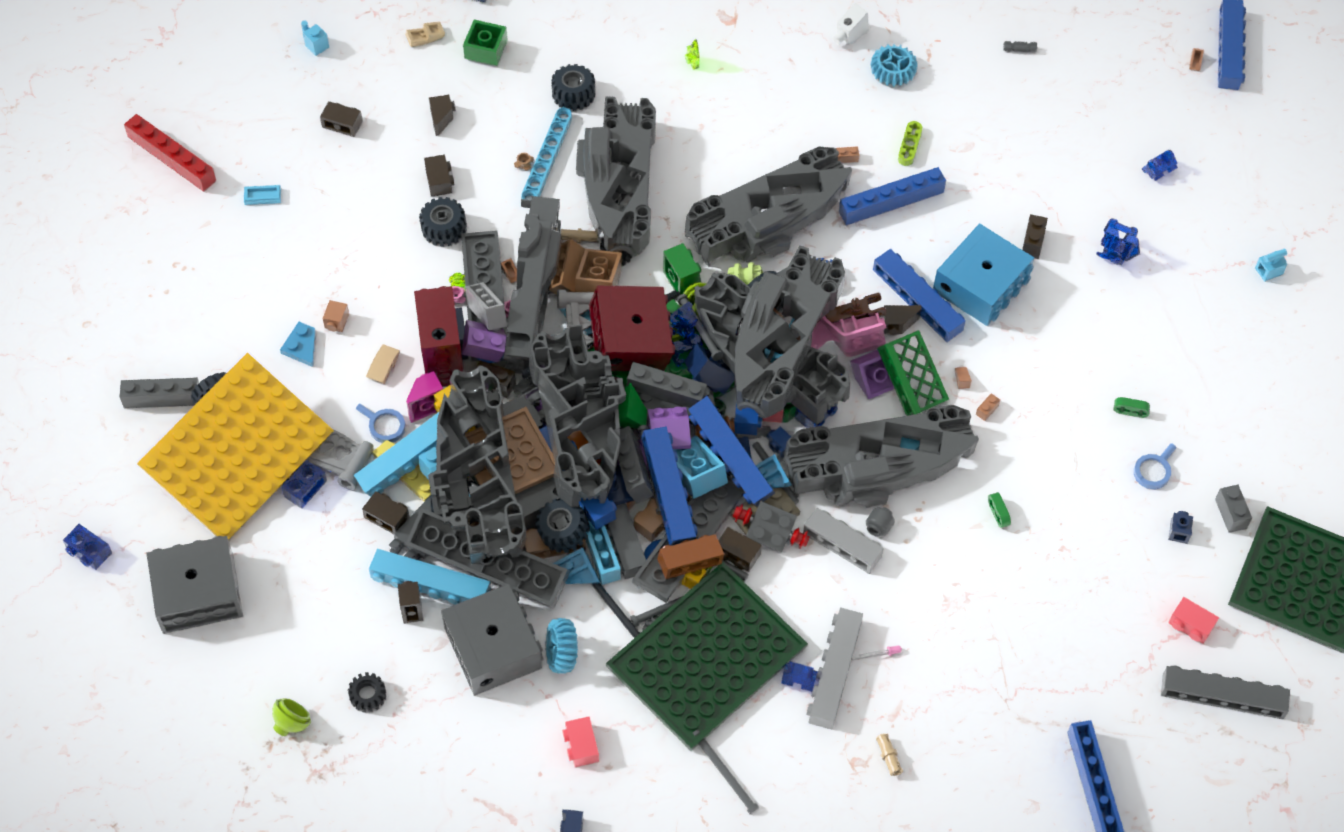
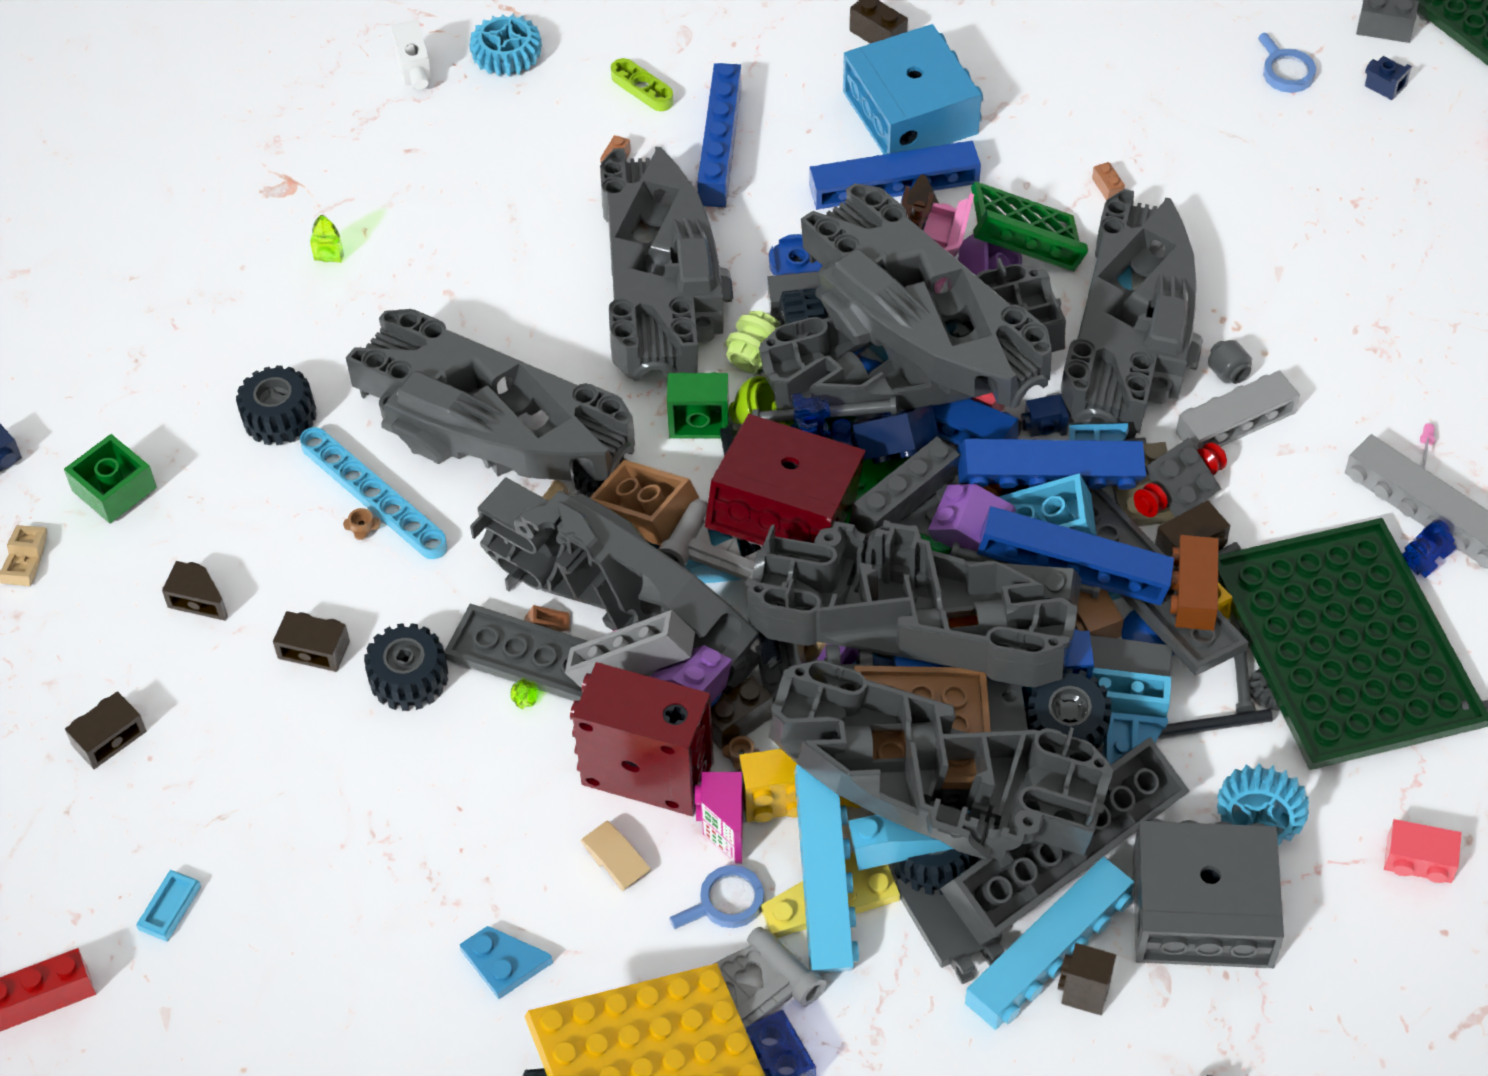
camera: 60 degrees left, 5 degrees down
(335, 316) = (486, 885): nougat brick -> none
(385, 512) = (898, 956): dark brown brick -> none
(460, 292) = (545, 700): bright pink plate -> none
(963, 377) = (1047, 188): nougat piece -> none
(999, 510) = (1273, 235): green beam -> none
(1131, 407) = (1189, 46): green beam -> none

